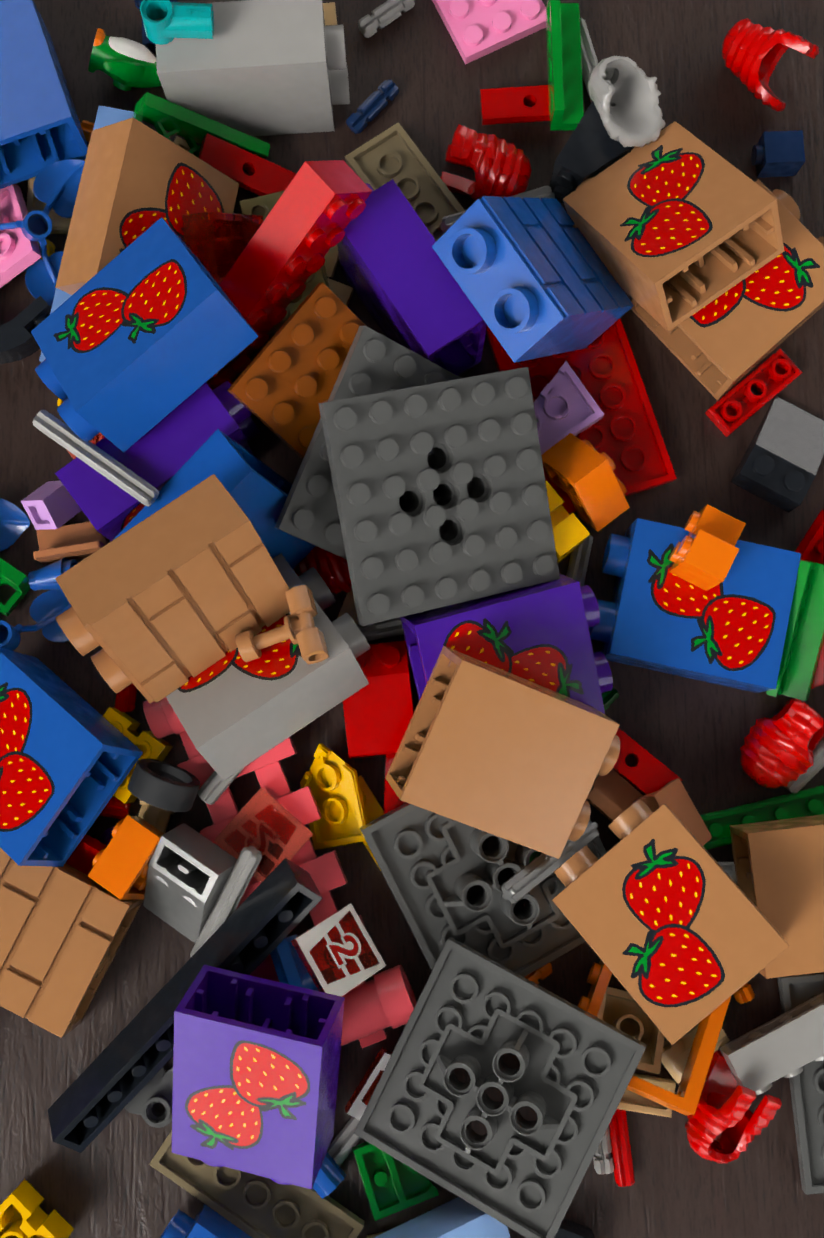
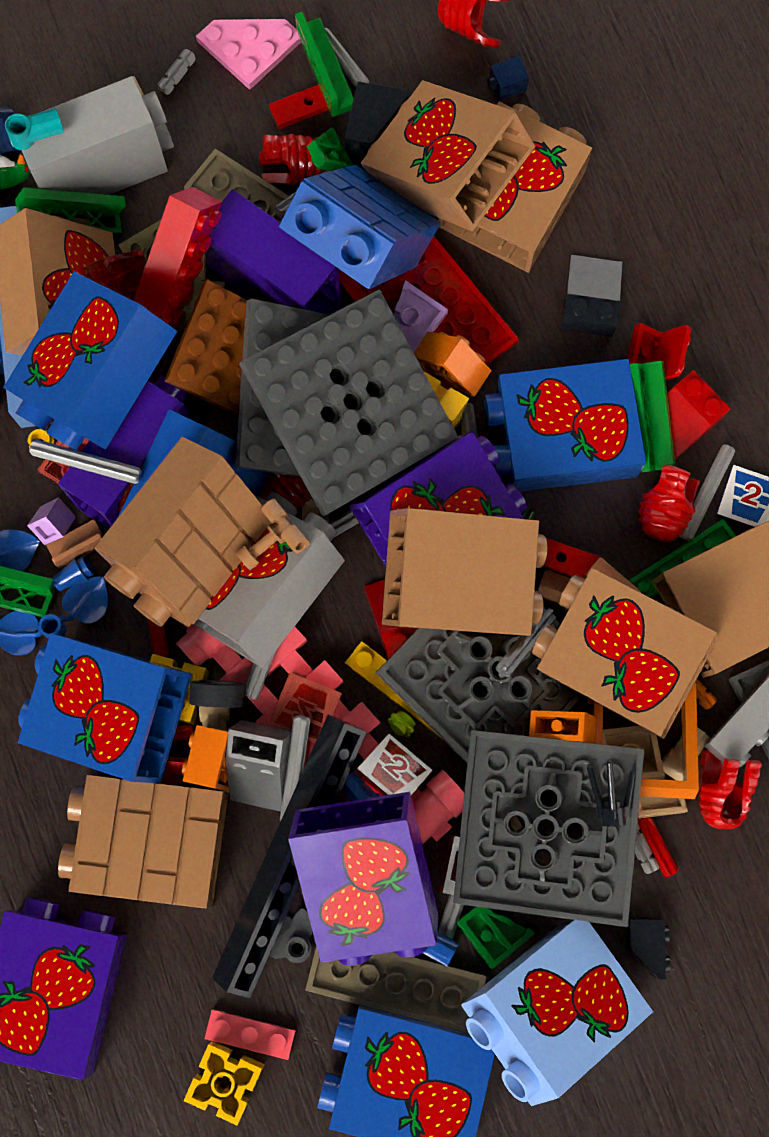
camera: 20 degrees left, 5 degrees down
(70, 1188) = (250, 1034): none -> coral plate
(229, 159) = (126, 221): red tile -> none
(338, 799) = (352, 663): yellow tile -> none
(372, 106) = (190, 143): dark blue axle -> none
(372, 891) = (401, 724): none -> lime plate
(382, 709) = (359, 581): red slope -> none
(530, 172) = (329, 152): none -> green wing
(558, 976) = (563, 726): none -> orange brick
(581, 1110) = (612, 812): none -> black plant
(626, 101) = (382, 78): light grey piece -> none
(708, 548) = (558, 377): orange brick -> none
(741, 403) = (546, 268): red tile -> none

